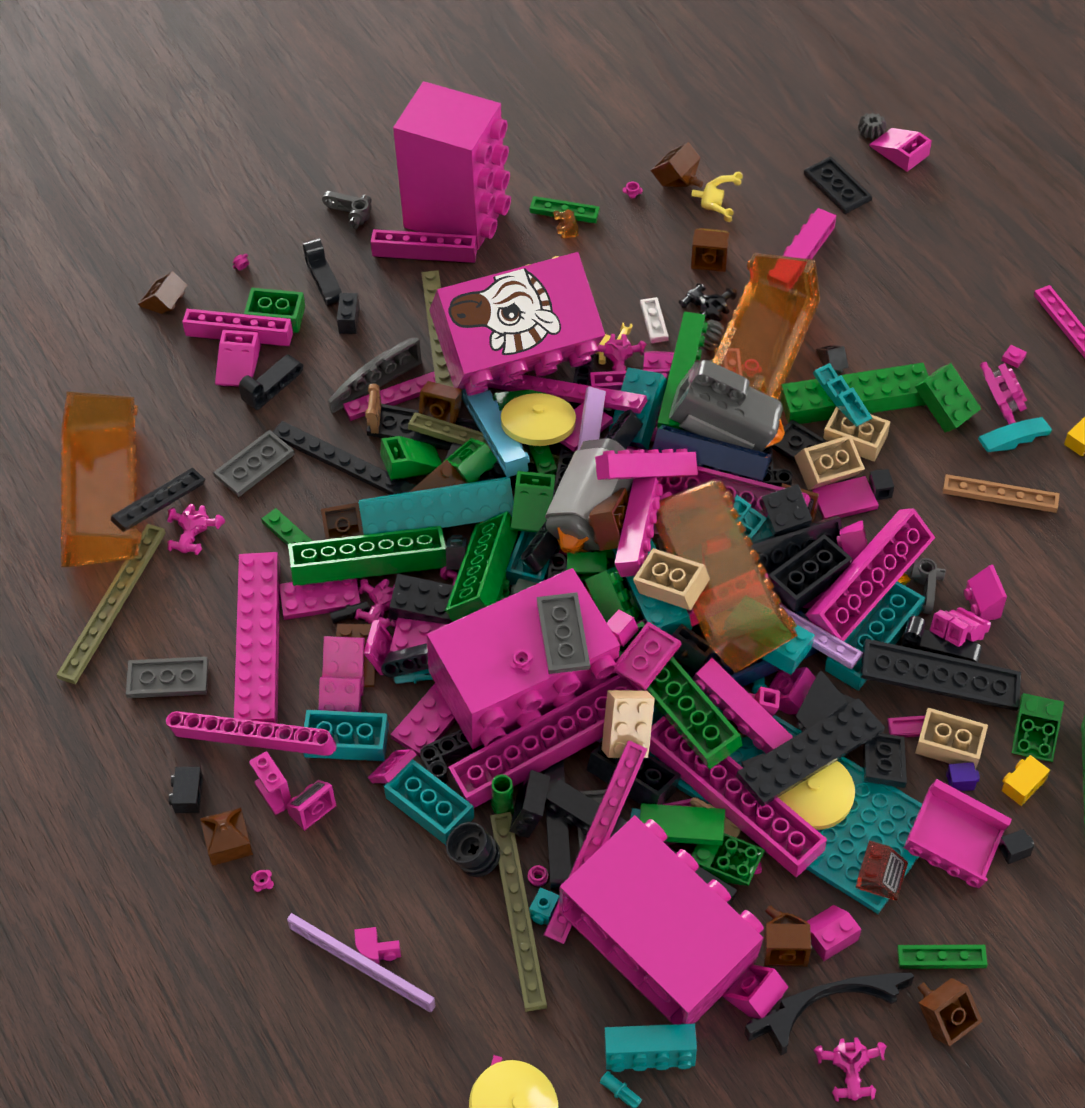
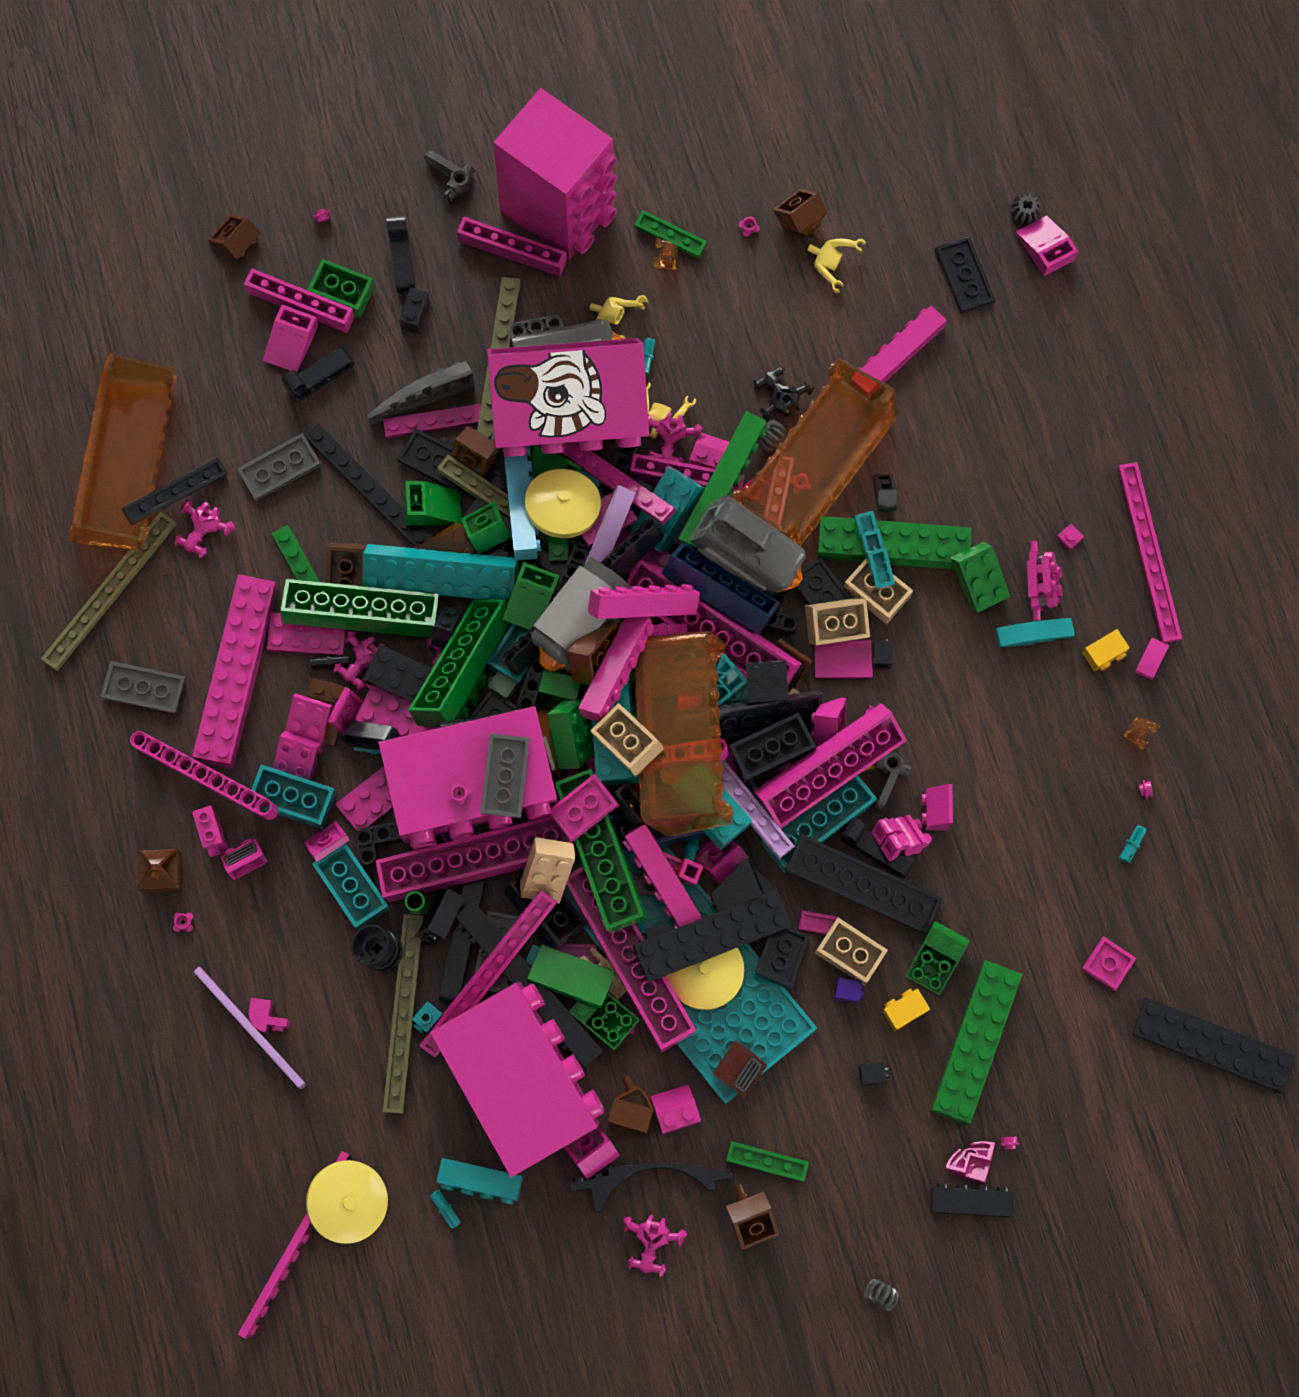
camera: 10 degrees right, 20 degrees up
(186, 790) = (134, 812): black brick -> none
(374, 408) = (408, 440): medium nougat plate -> none
(538, 870) = (429, 978): dark pink plate -> none
(623, 627) = (567, 773): dark pink brick -> none
(654, 320) = (721, 397): white tile -> none
(710, 249) = (803, 327): reddish brown piece -> none
(956, 833) = (820, 1049): dark pink panel -> none
(1001, 493) = (996, 695): medium nougat plate -> none

